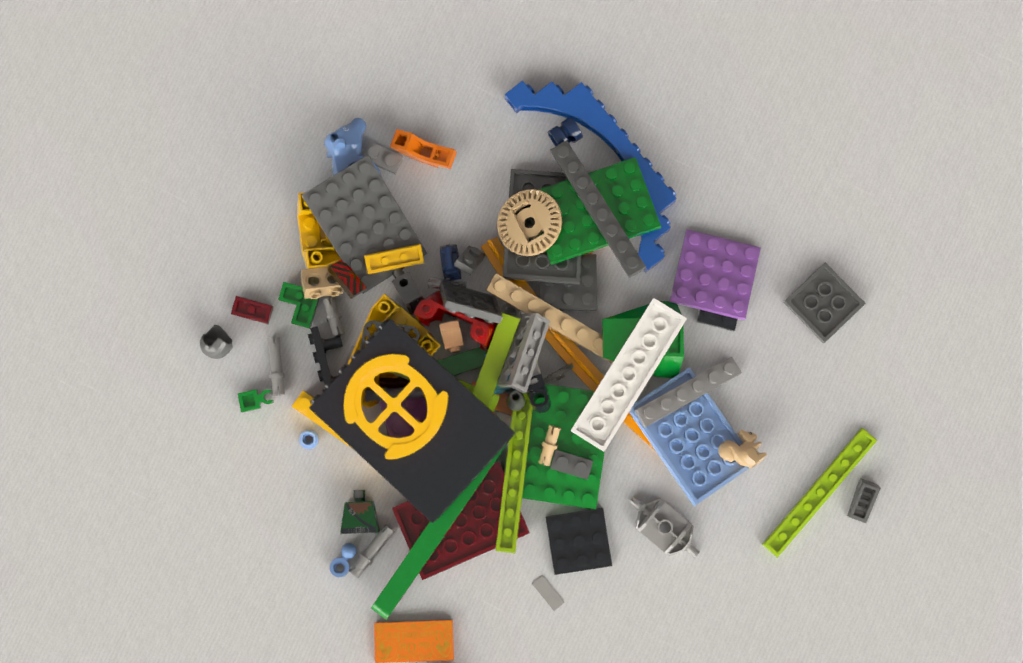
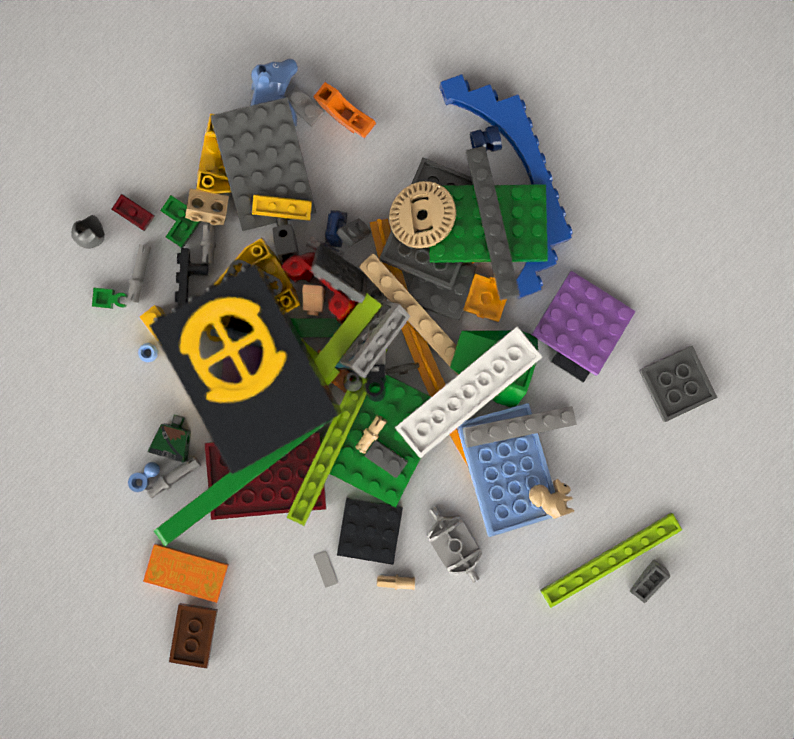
camera: 15 degrees right, 5 degrees up
(347, 278) = (230, 211): dark brown tile -> none
(614, 283) = (484, 299): none -> light orange plate
(620, 582) = (396, 582): none -> tan axle

